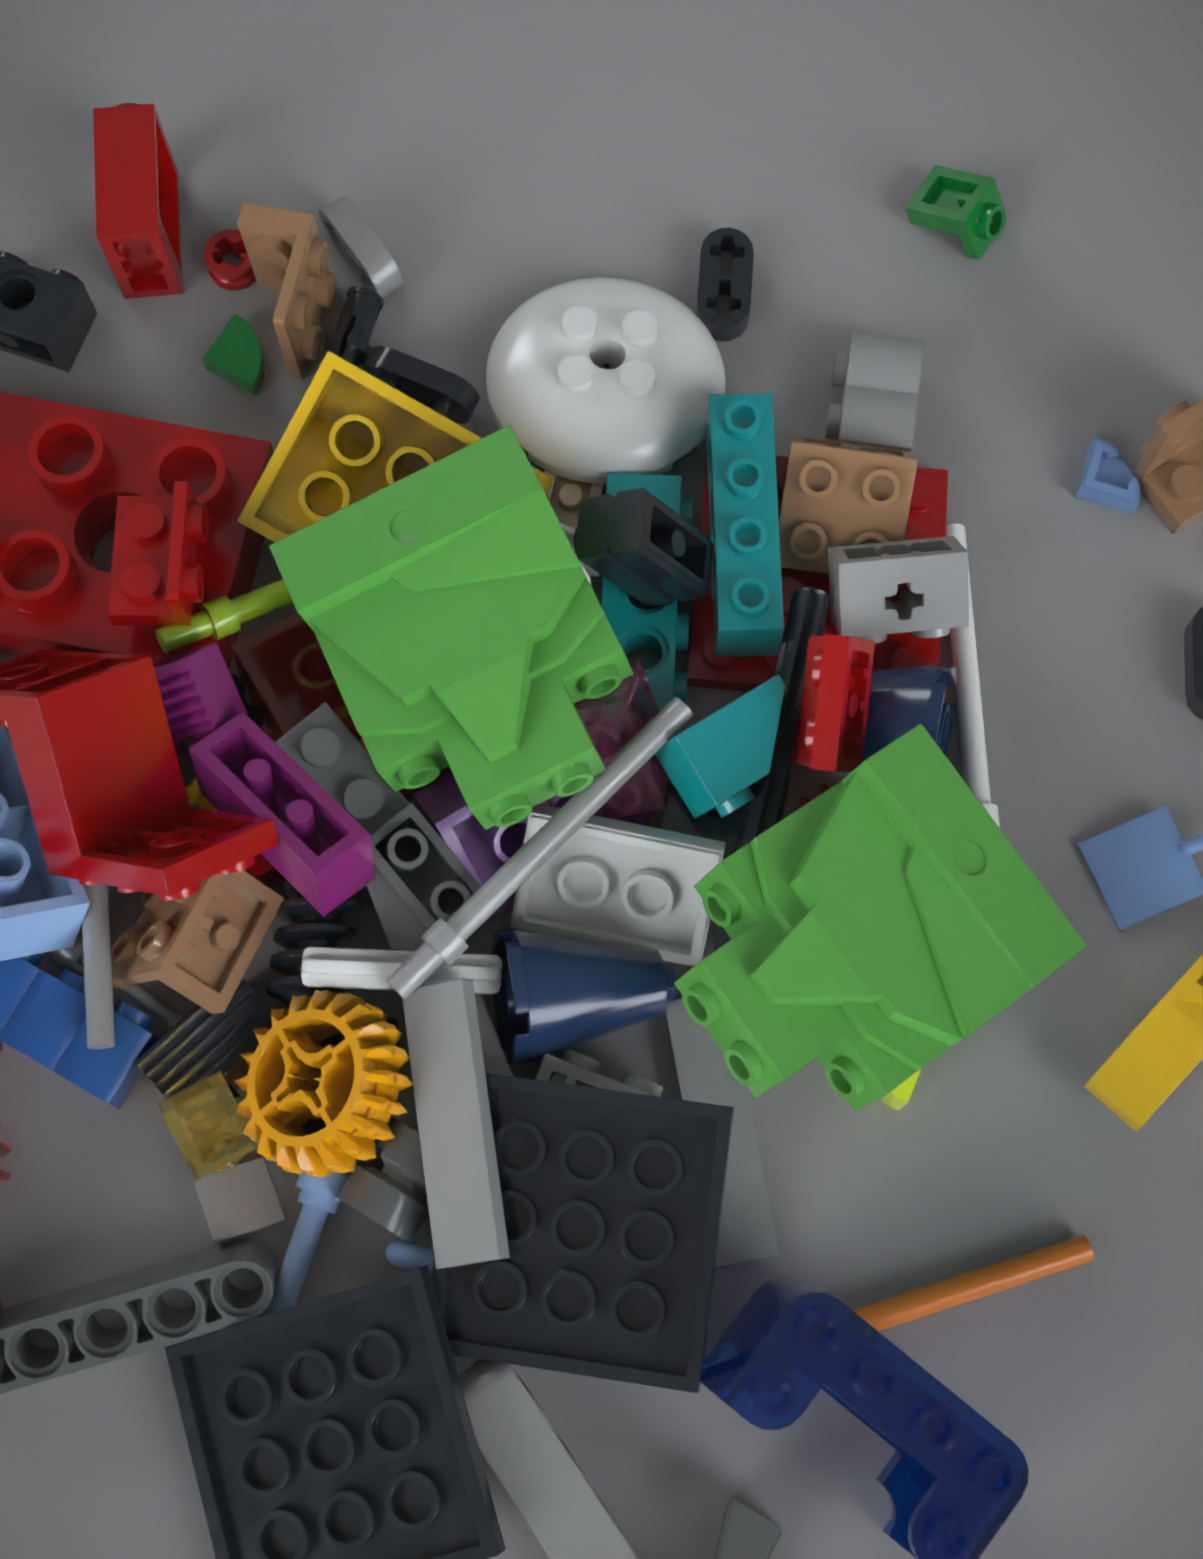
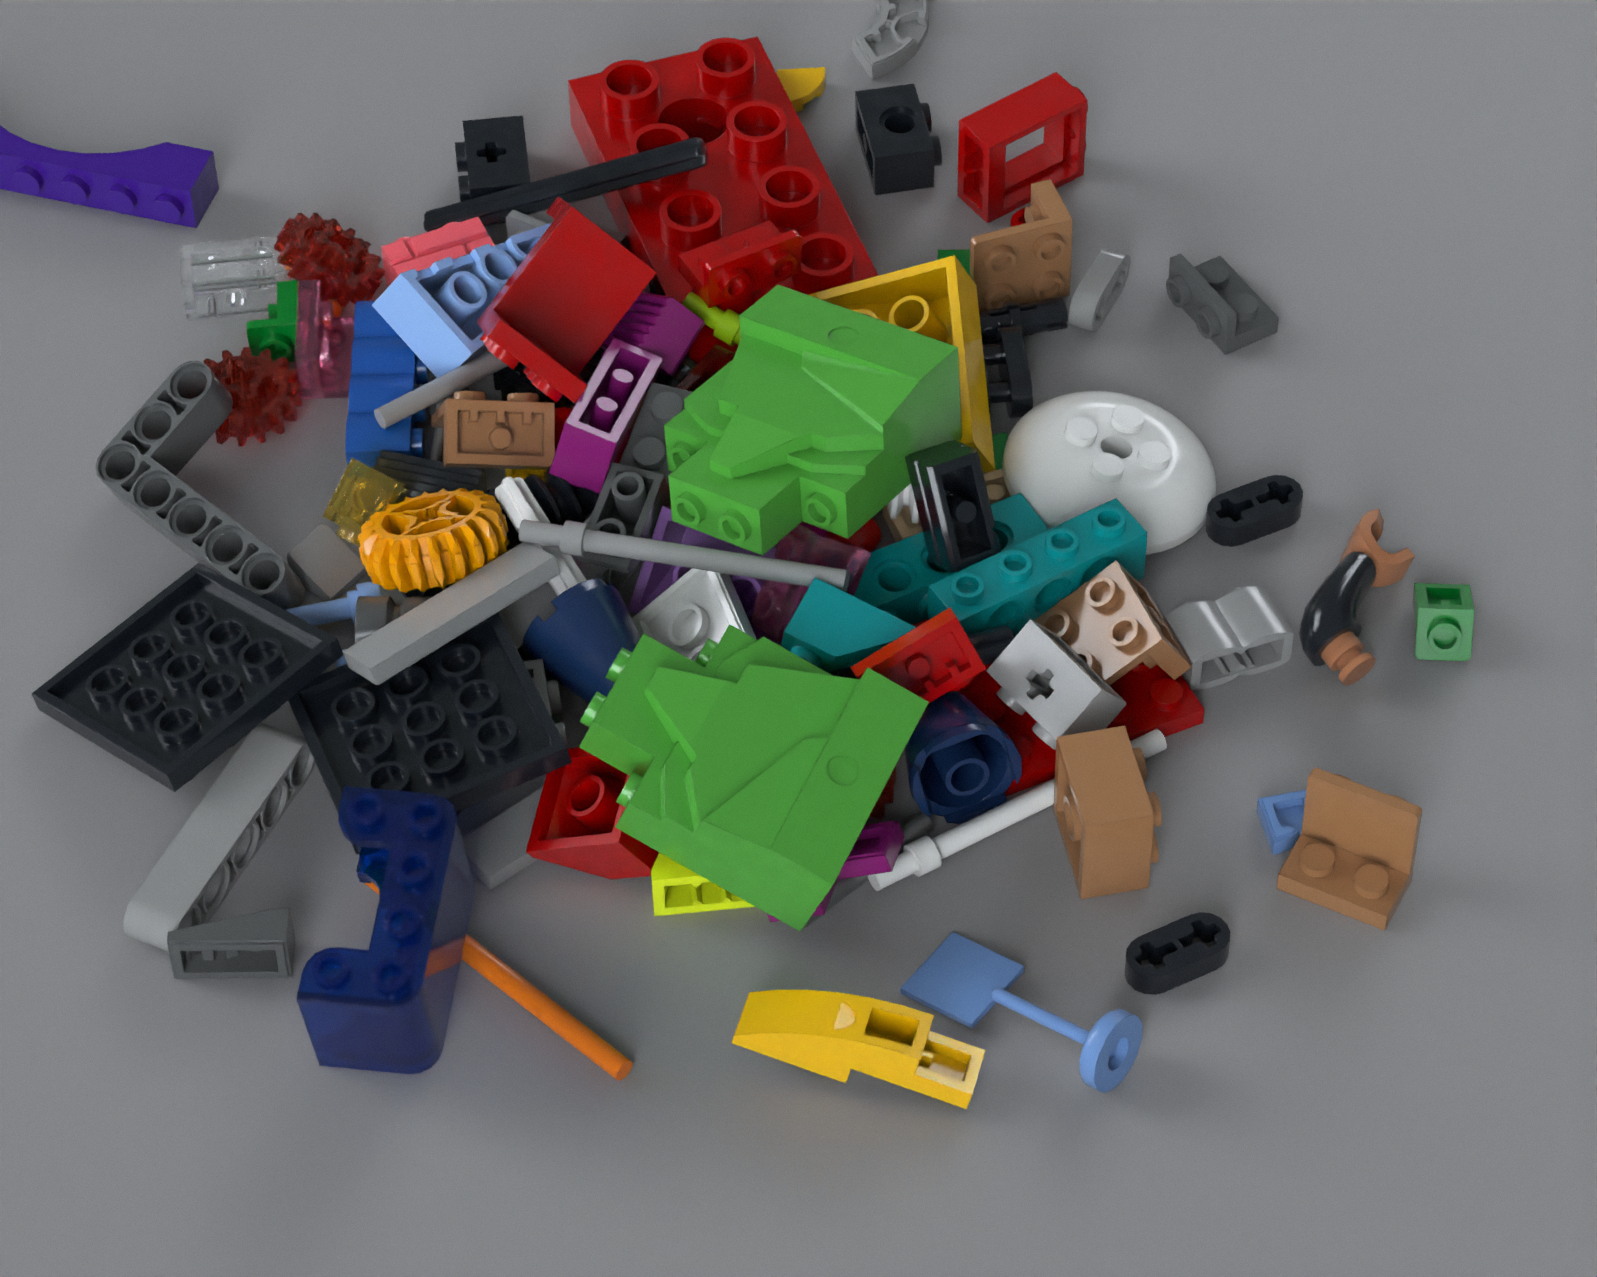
camera: 60 degrees right, 25 degrees down
(443, 156) = (1219, 303): none -> dark grey bracket
(785, 1128) = (579, 821): none -> red slope
(902, 285) = (1330, 618): none -> piece
(1060, 631) = (1105, 811): none -> medium nougat brick

